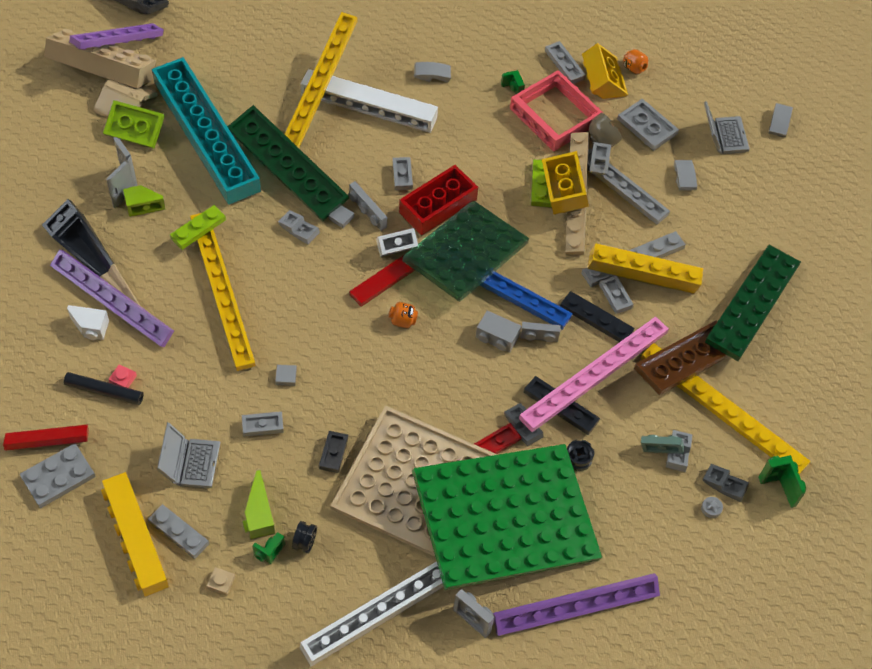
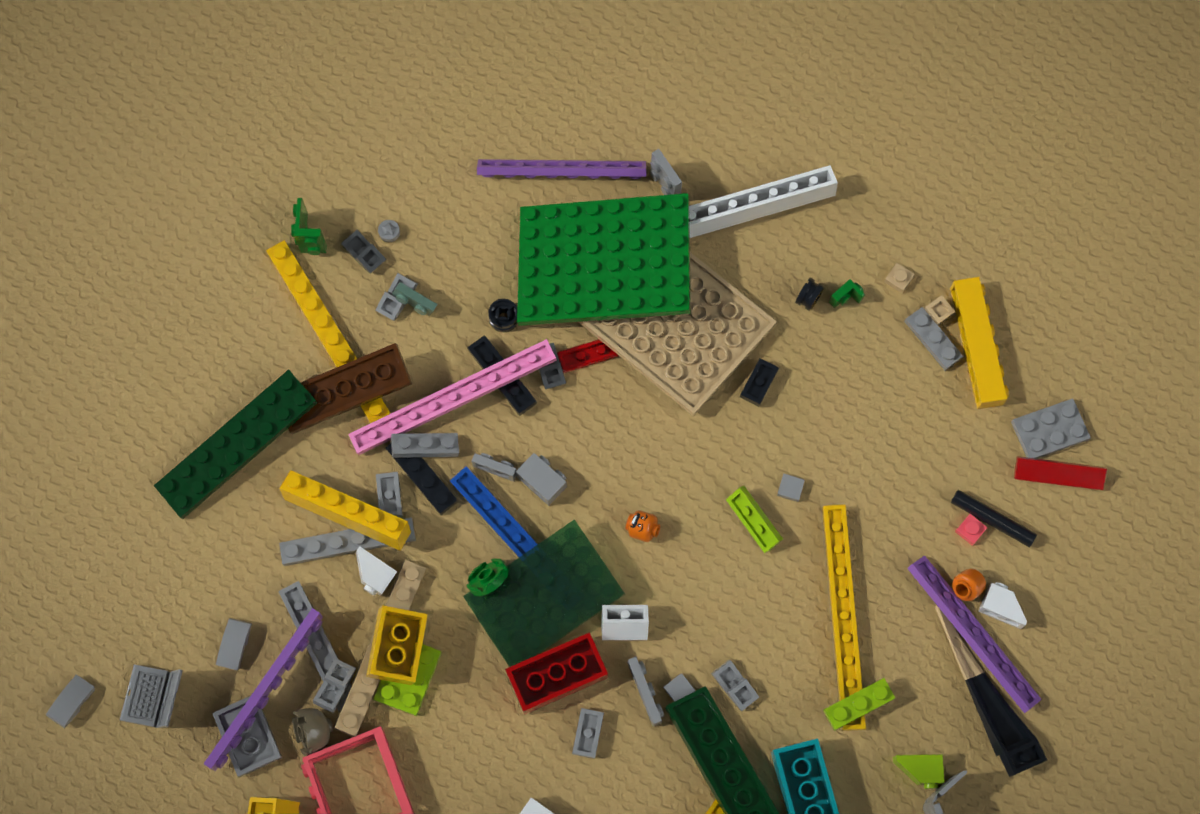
camera: 160 degrees left, 15 degrees up
(119, 328) = (969, 584): none -> orange head
(176, 556) = (939, 310): none -> tan plate
(188, 461) = (912, 409): light grey piece -> none
(258, 512) = (850, 331): lime slope -> none
(262, 424) = (828, 432): light grey plate -> none
(311, 341) = (754, 519): none -> lime plate
(380, 281) = (656, 582): red tile -> none
(514, 249) = (487, 577): none -> green tile
(603, 333) = (425, 445): none -> light grey plate
(604, 234) = (373, 572): none -> white slope
(646, 148) = (260, 696): none -> medium lavender plate

